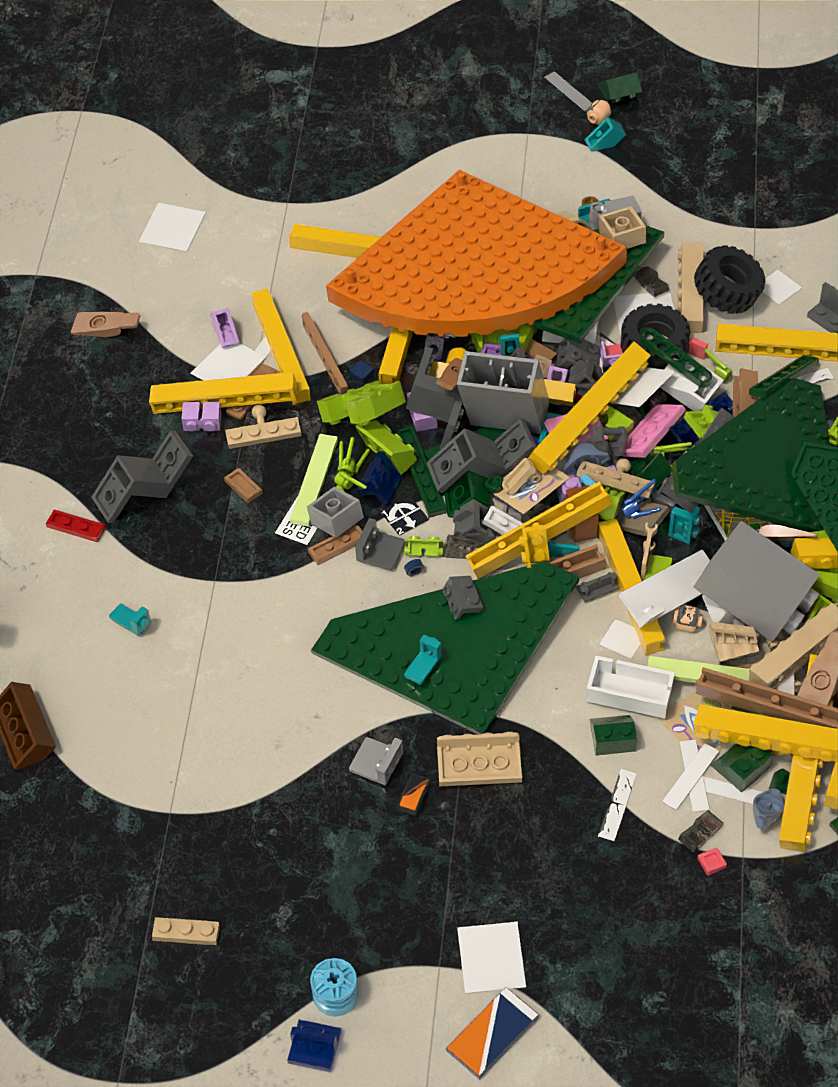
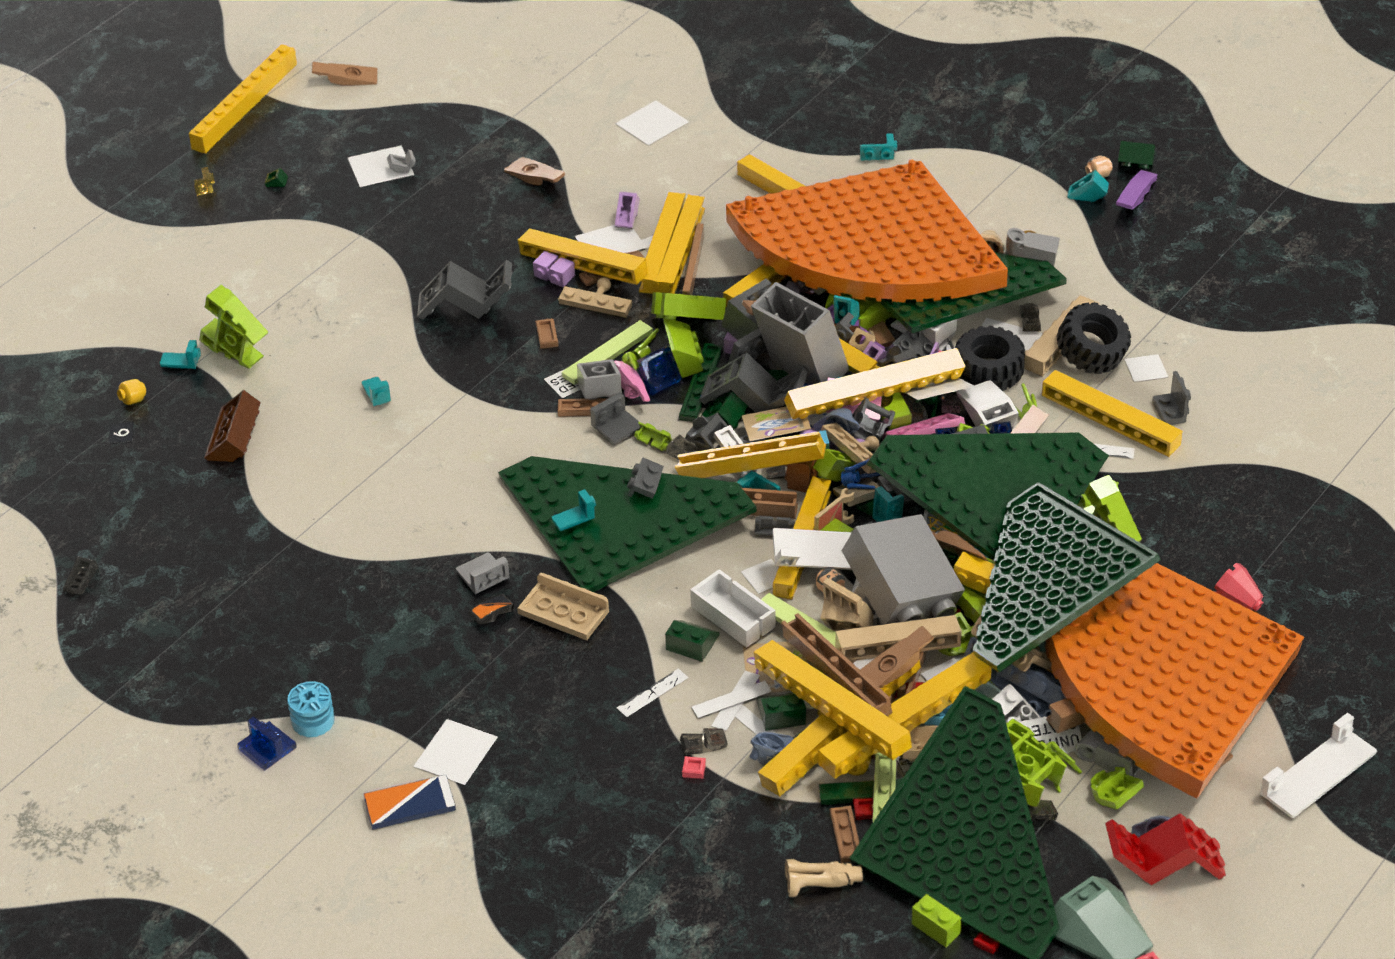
camera: 30 degrees right, 10 degrees down
(75, 525) = (391, 308): red tile -> none
(185, 931) = (237, 624): tan plate -> none
(299, 340) = (680, 245): none -> yellow tile
(361, 371) = (715, 288): dark blue tile -> none
(367, 500) = (631, 382): none -> bright pink animal
(404, 515) = (660, 410): black sticker -> none
(406, 171) = (879, 151): none -> teal bracket
(414, 567) = (632, 448): dark blue tile -> none
(494, 484) = (748, 412): dark green tile -> none
(519, 475) = (773, 406): tan piece -> none
(535, 545) = (734, 464): yellow bracket -> none
(568, 90) = (1089, 140): light grey sticker -> none
(623, 227) = (1022, 257): tan brick -> none
(646, 120) = (1136, 189): none -> medium lavender slope
(680, 364) = (984, 383): dark green beam -> none
(697, 348) = (1023, 378): coral tile -> none
(783, 376) = (1065, 430): dark green tile -> none

